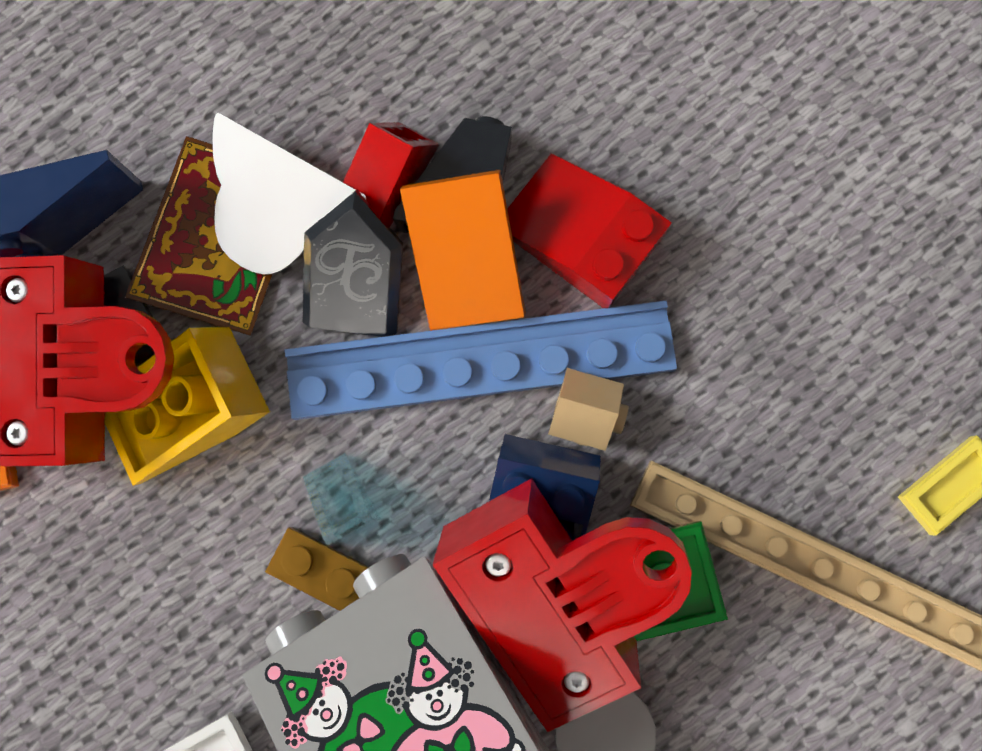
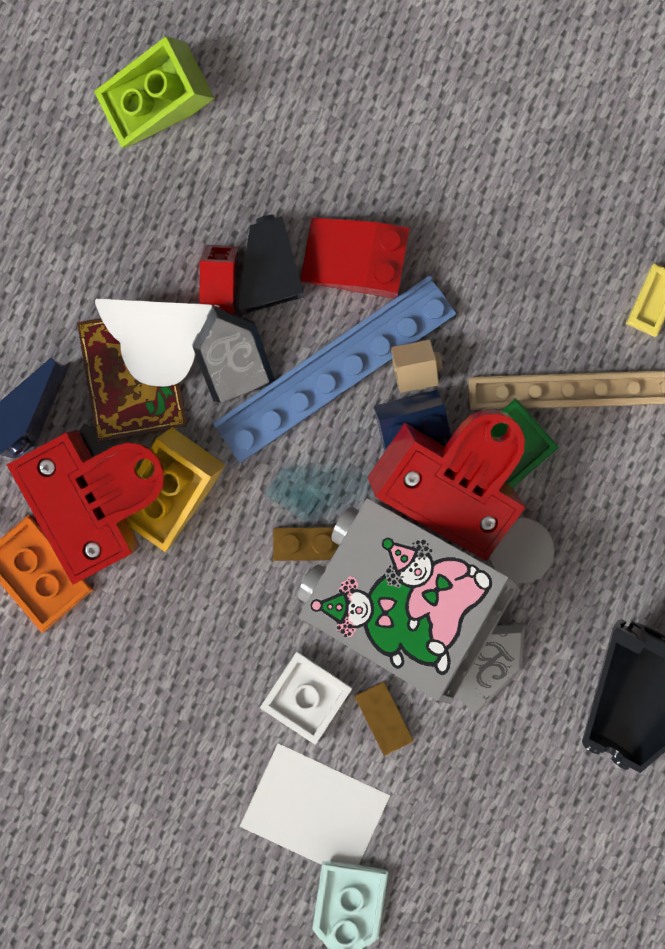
camera: 35 degrees left, 5 degrees up
(464, 250) = (293, 308): orange tile -> none

